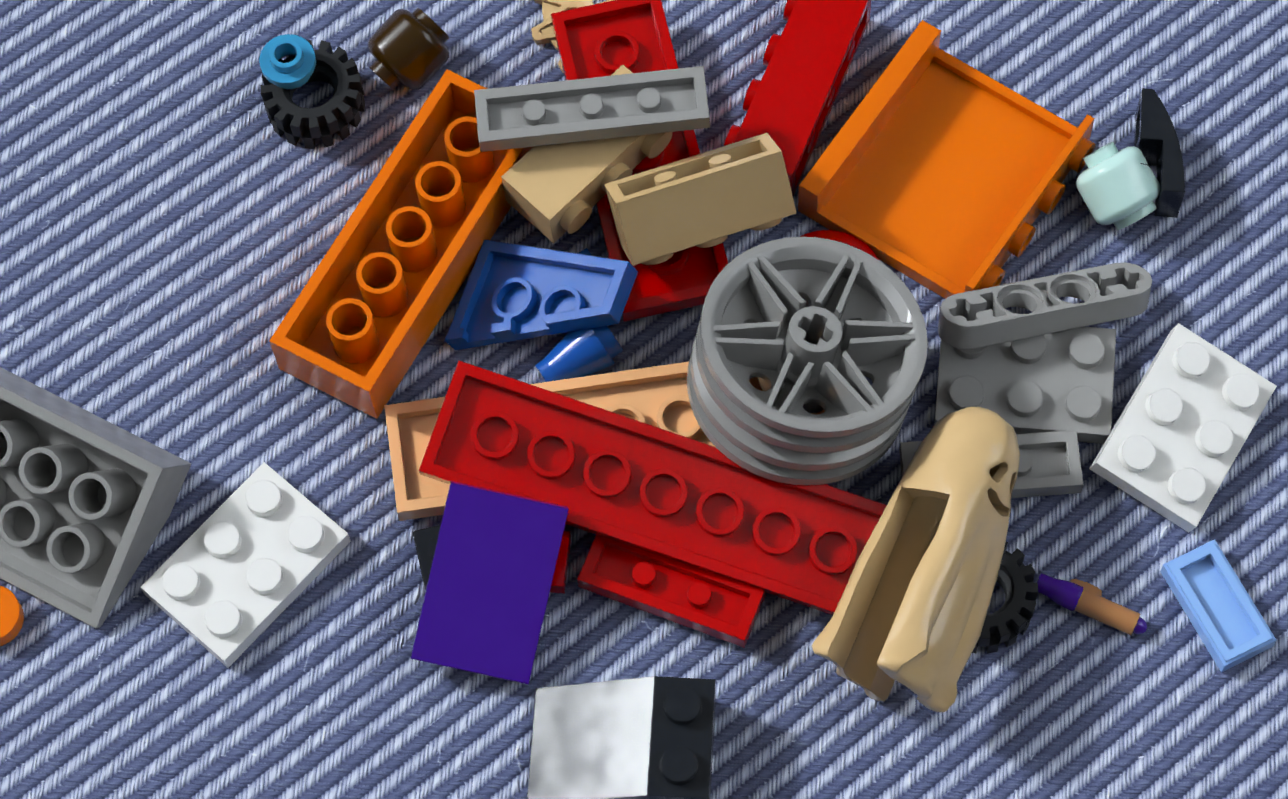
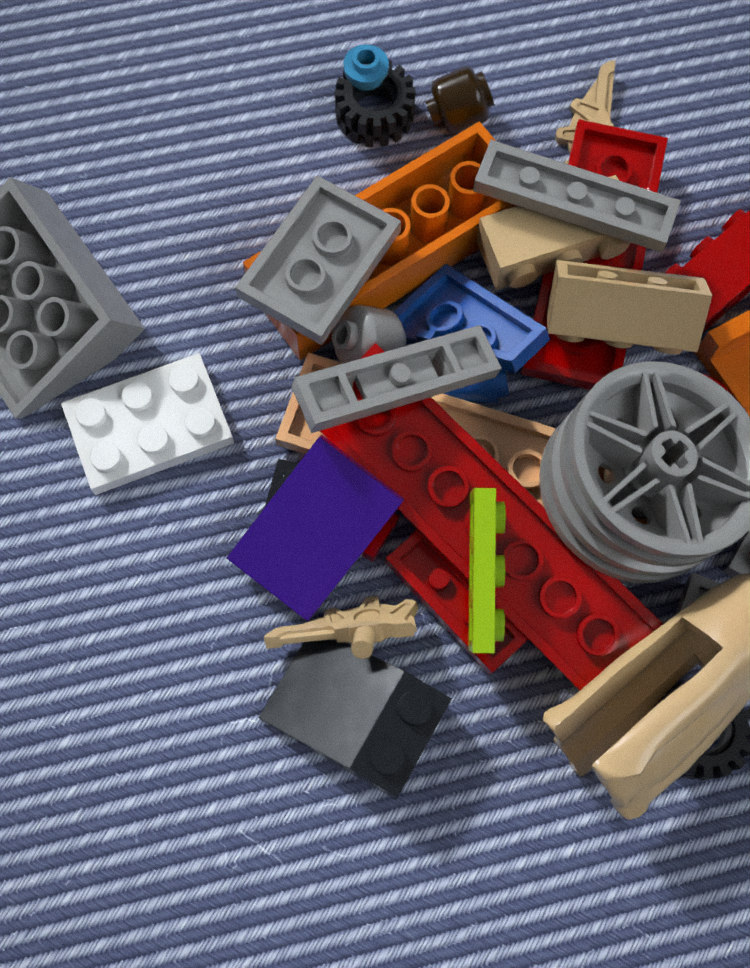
camera: 20 degrees right, 5 degrees up
(353, 300) = (318, 259): none -> light grey plate
(433, 354) = (362, 328): none -> light grey head
(500, 385) = (395, 378): none -> light grey hinge
(585, 660) = (358, 626): none -> tan piece
(686, 537) = (485, 570): none -> lime plate

